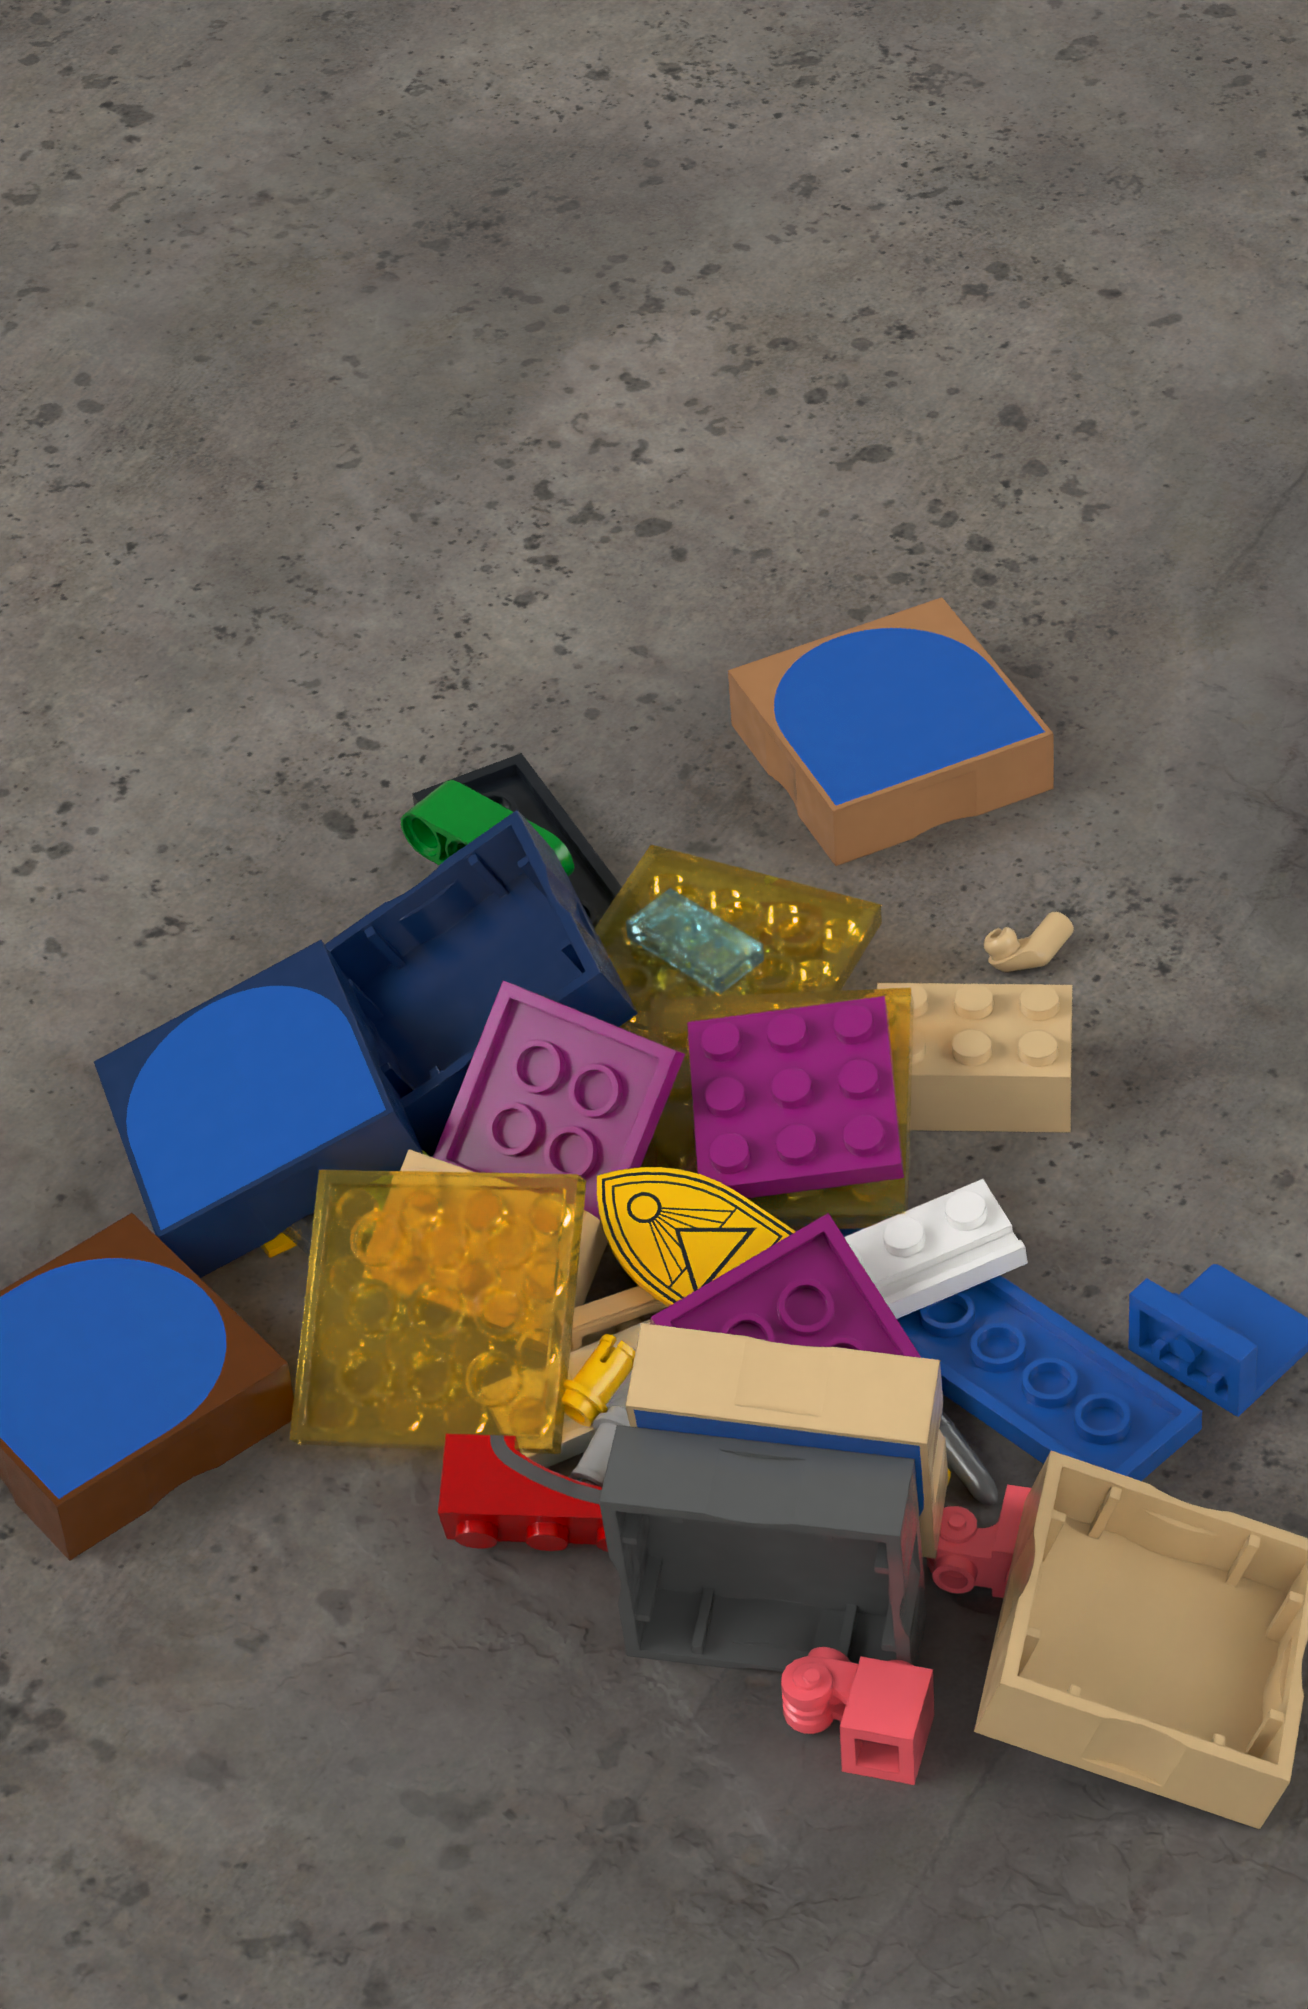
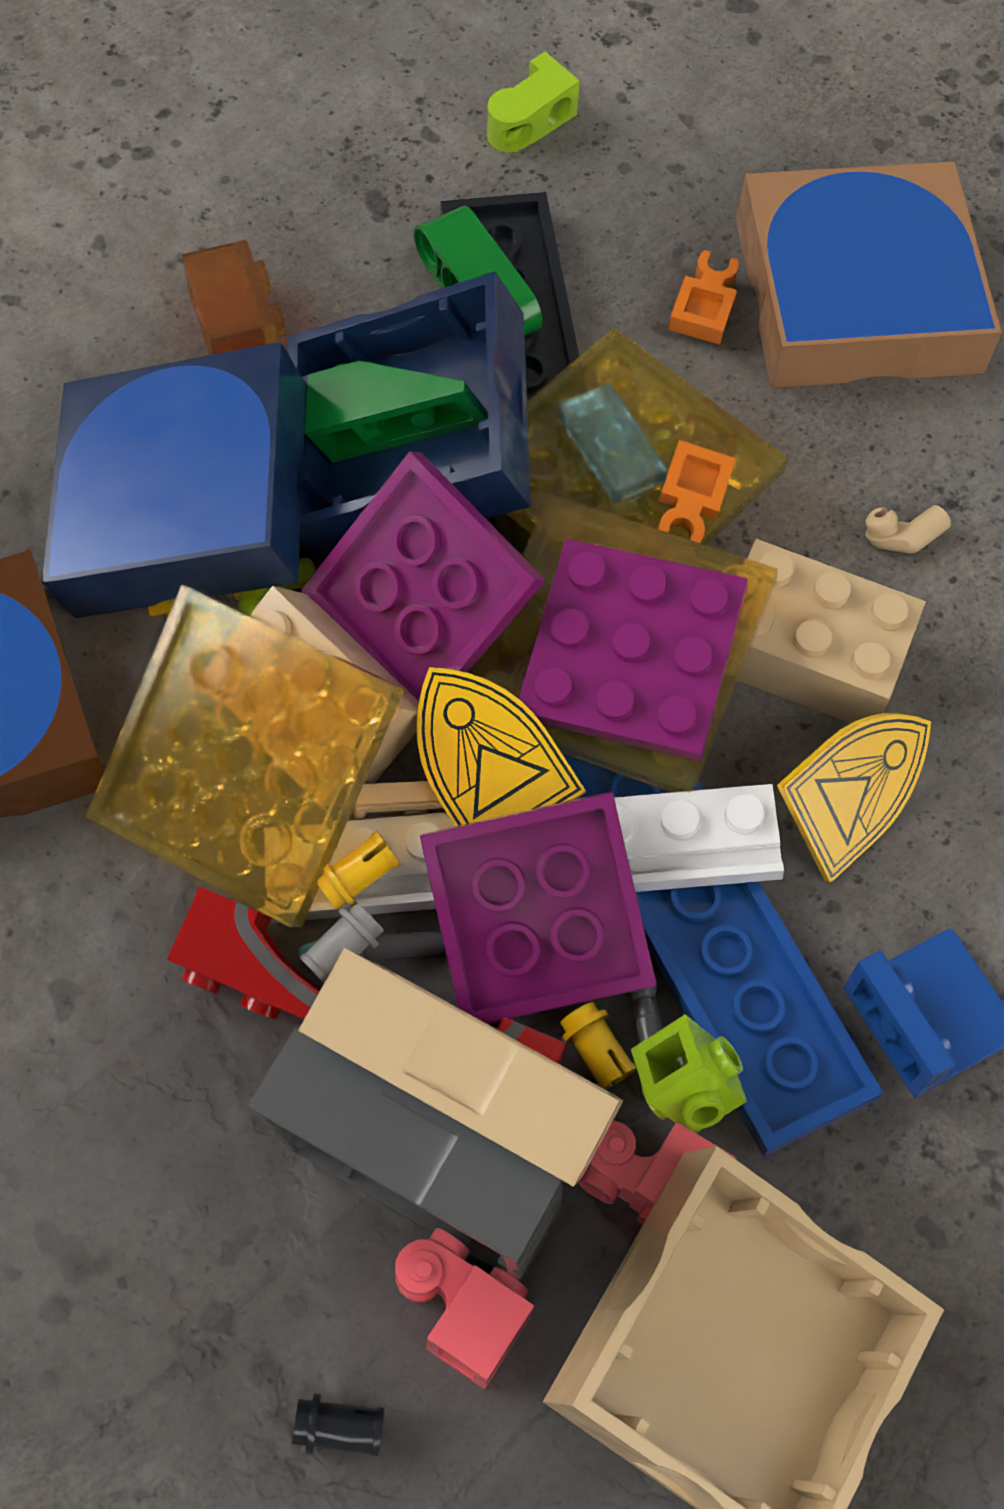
camera: 10 degrees right, 20 degrees up
(222, 940) = (231, 298): none -> clear orange brick
(447, 978) = (381, 407): none -> green slope
(471, 681) = (532, 106): none -> lime leg
(733, 804) = (705, 301): none -> orange plate
(782, 1845) = (337, 1426): none -> black pin
(796, 949) = (694, 488): none -> orange plate
(1001, 1439) = (689, 1075): none -> lime brick
(1069, 1168) = (855, 786): none -> yellow shield

